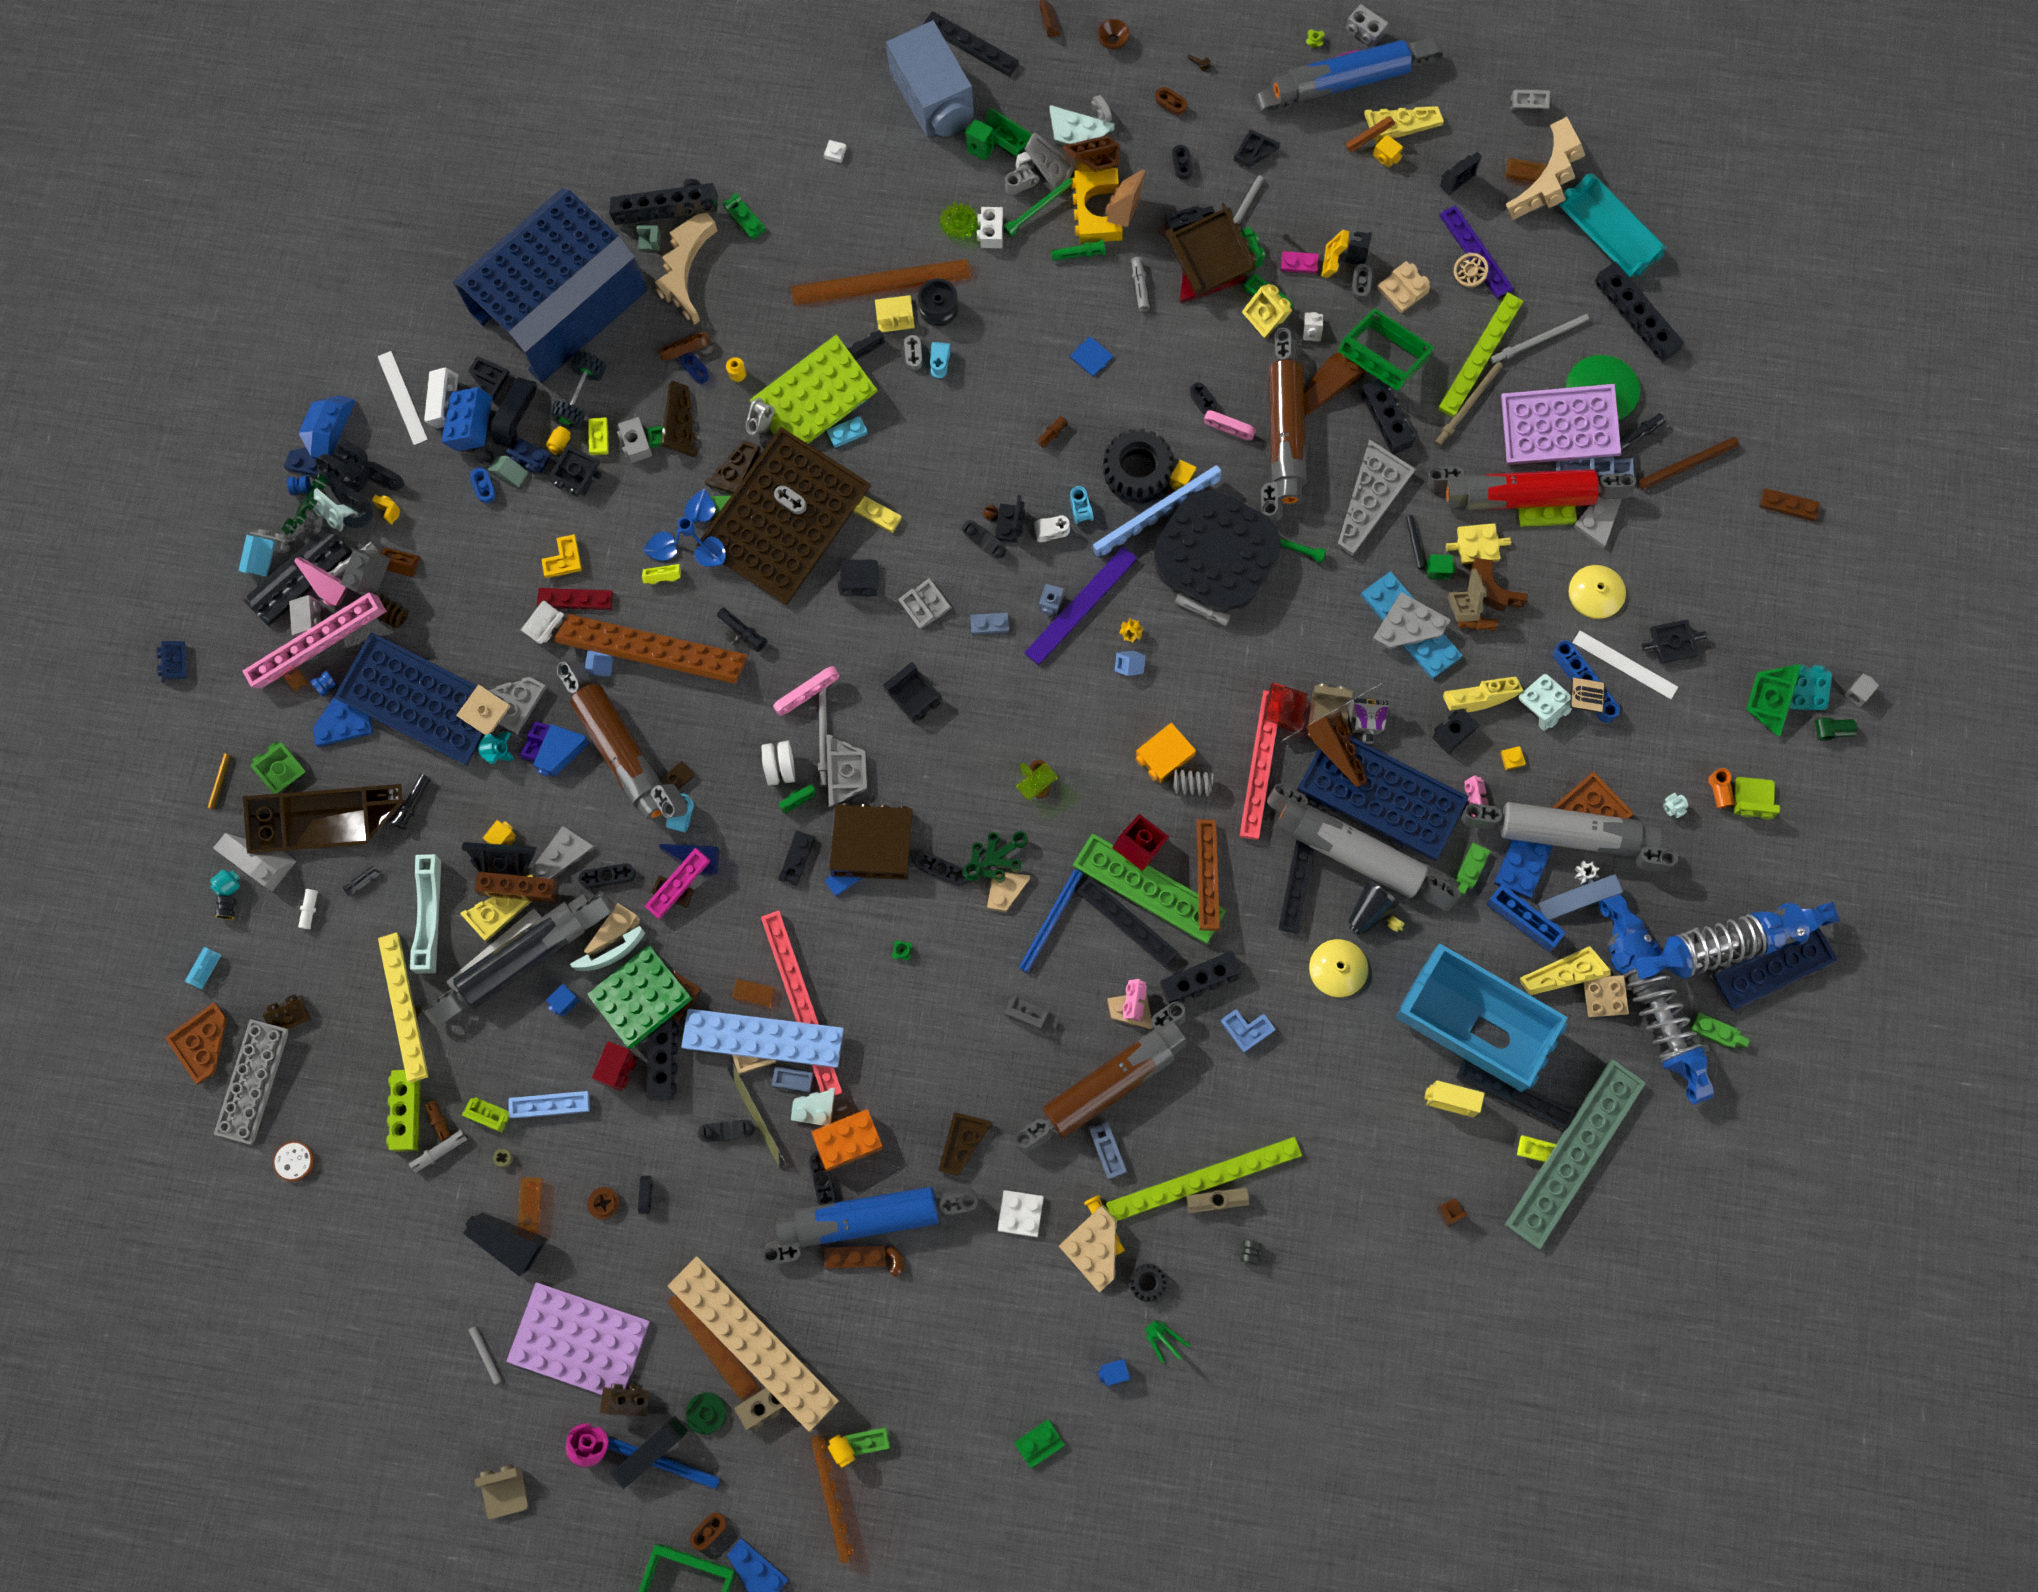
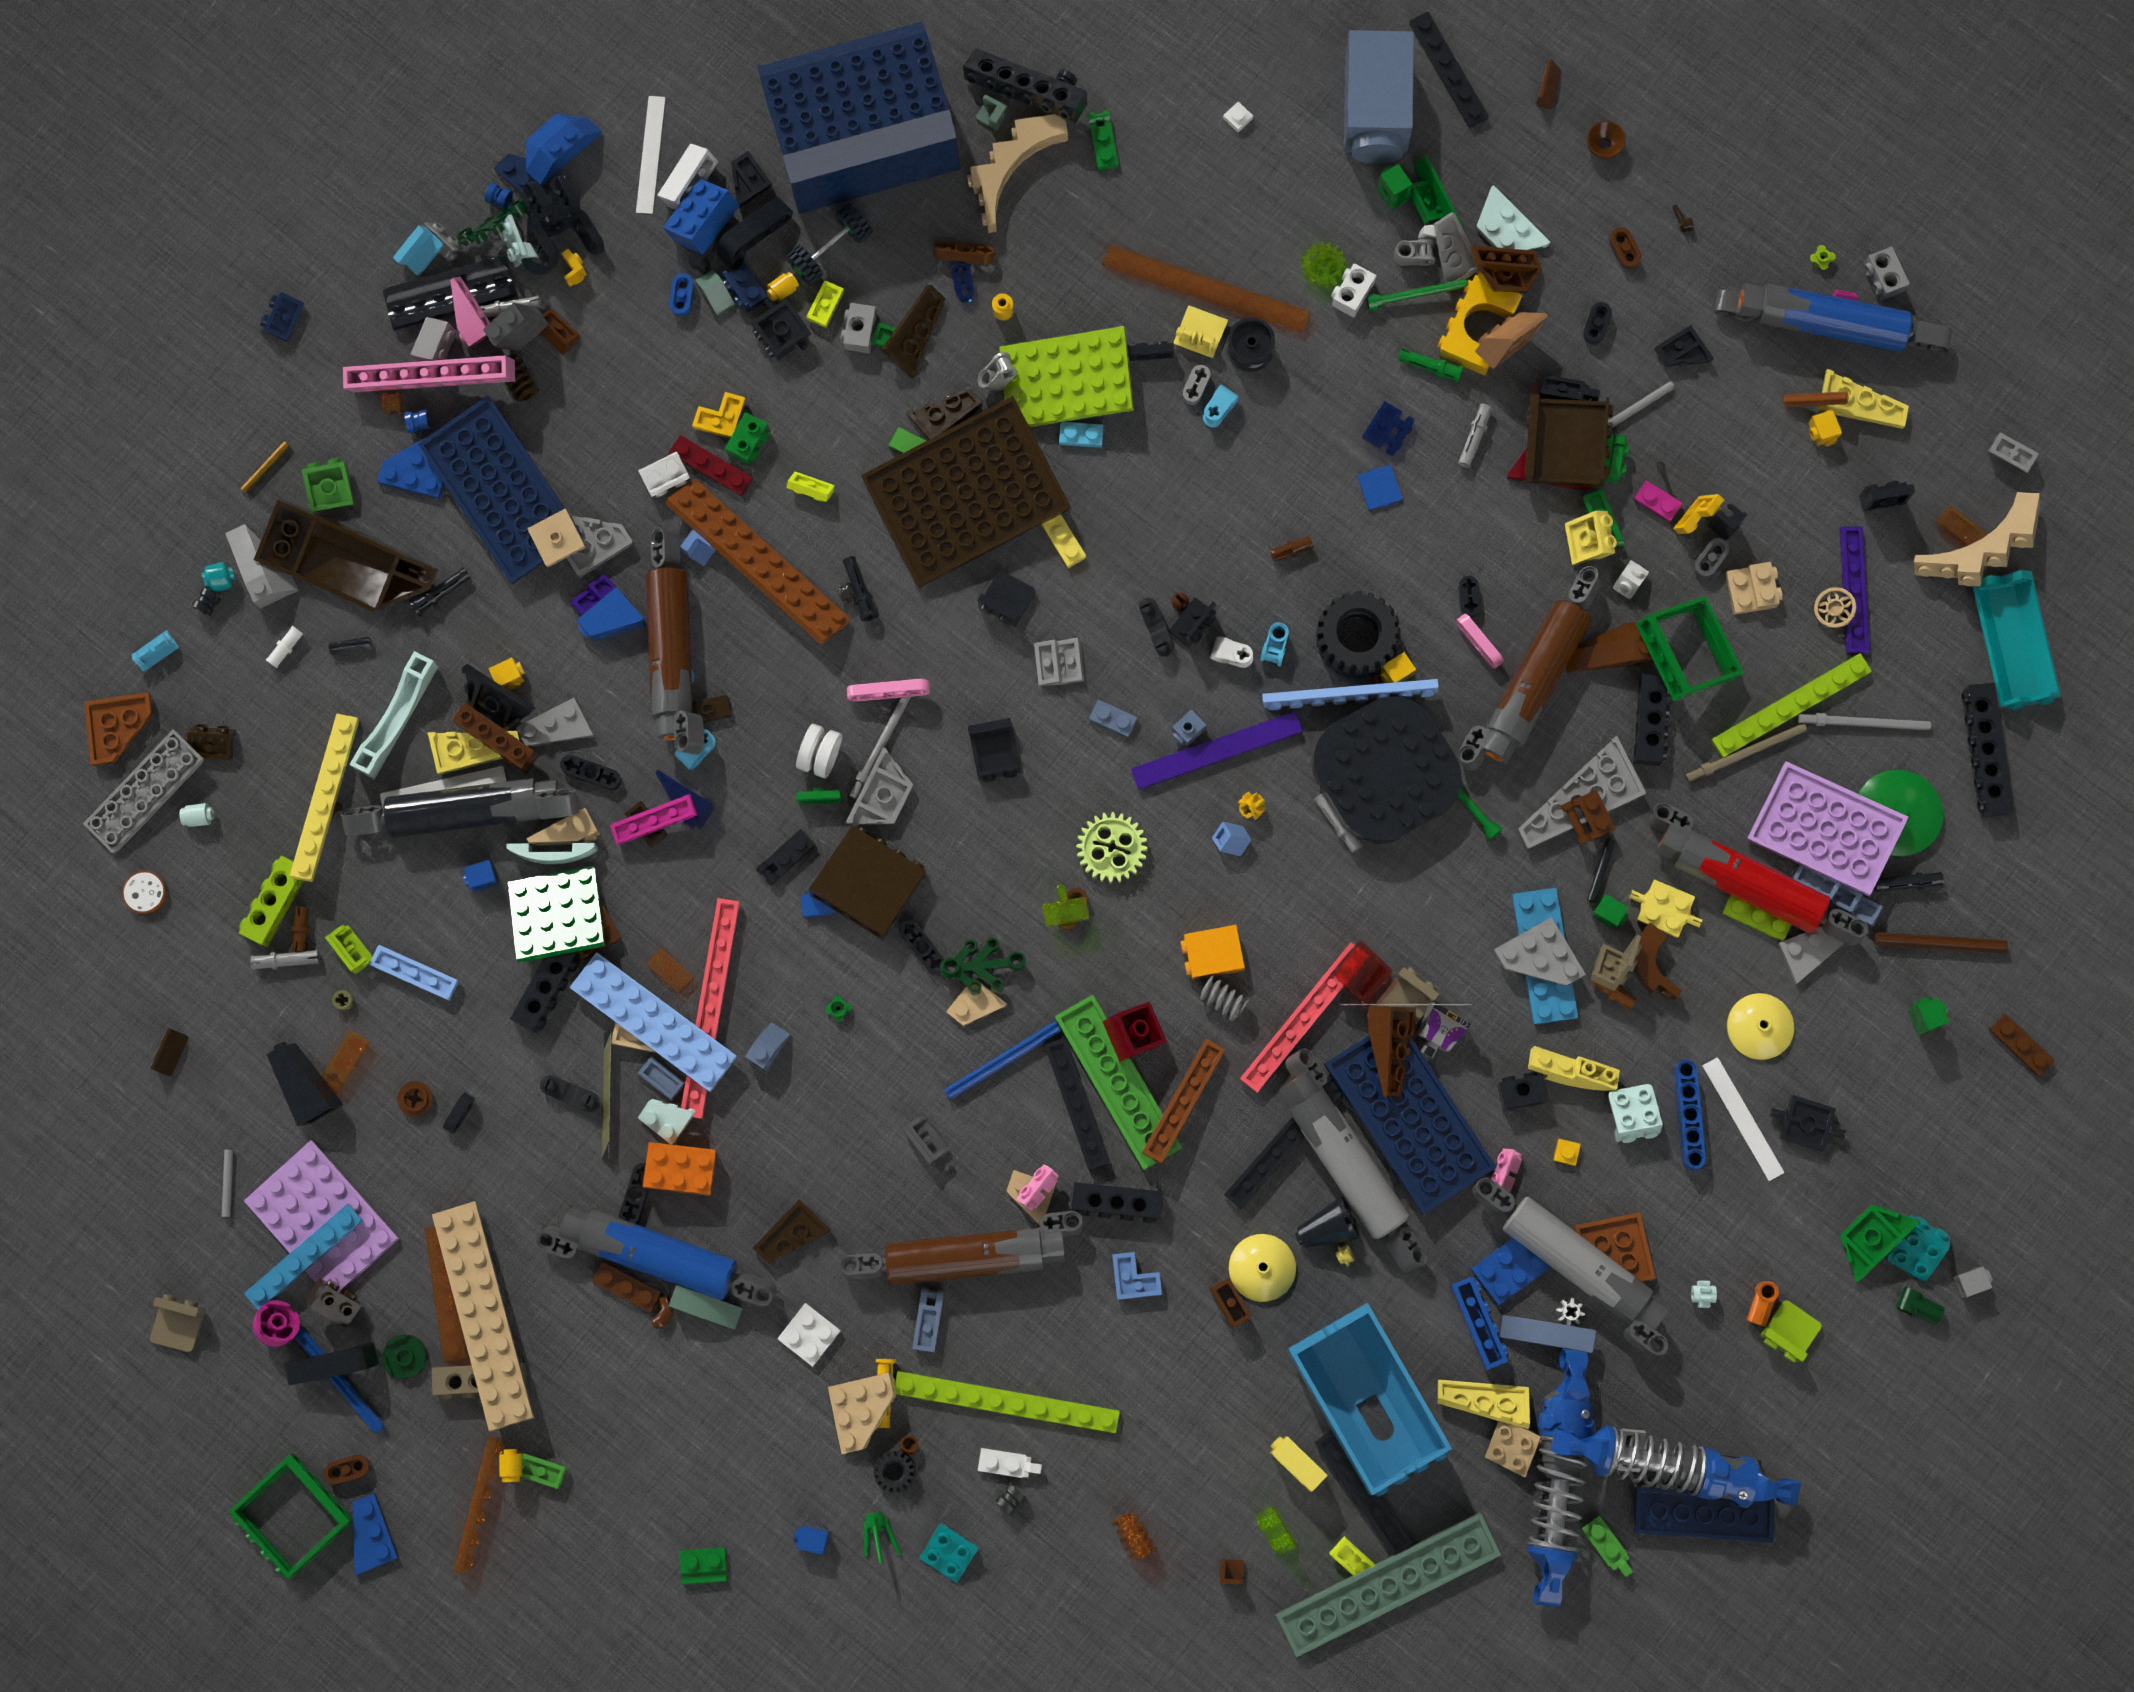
camera: 30 degrees right, 5 degrees up
(305, 1076) = (196, 815): none -> light aqua brick
(381, 1276) = (169, 1052): none -> dark brown slope
(495, 748) = (549, 581): teal brick -> none
(580, 1378) = (303, 1256): none -> dark azure plate
(593, 563) = (747, 439): none -> green brick
(614, 1066) = (495, 971): dark red brick -> none
(709, 554) = (872, 490): blue plant -> none
(787, 503) = (984, 478): light grey beam -> none
(863, 1009) = (767, 1046): none -> sand blue slope
(927, 1237) = (705, 1307): none -> sand green slope
(1047, 733) = (1105, 866): none -> yellowish green gear
(1068, 311) = (1382, 425): none -> clear blue plate
(1102, 109) = (1544, 222): light grey plate -> none
(1143, 1257) = (905, 1442): none -> reddish brown hinge
(1204, 1202) = (992, 1425): dark tan piece -> none
(1227, 1321) = (948, 1552): none -> teal hinge
(1231, 1226) = (1007, 1463): none -> white hinge
(1331, 1006) = (1230, 1303): none -> reddish brown brick
(1362, 1225) = (1133, 1535): none -> clear orange piece
(1387, 503) = (1594, 814): none -> reddish brown plate
(1468, 1159) = (1275, 1529): none -> clear neon green hinge
(1471, 867) = (1456, 1241): bright green hinge -> none
(1587, 695) = (1678, 1131): piece -> none
(1713, 516) = (1928, 1015): none -> green brick

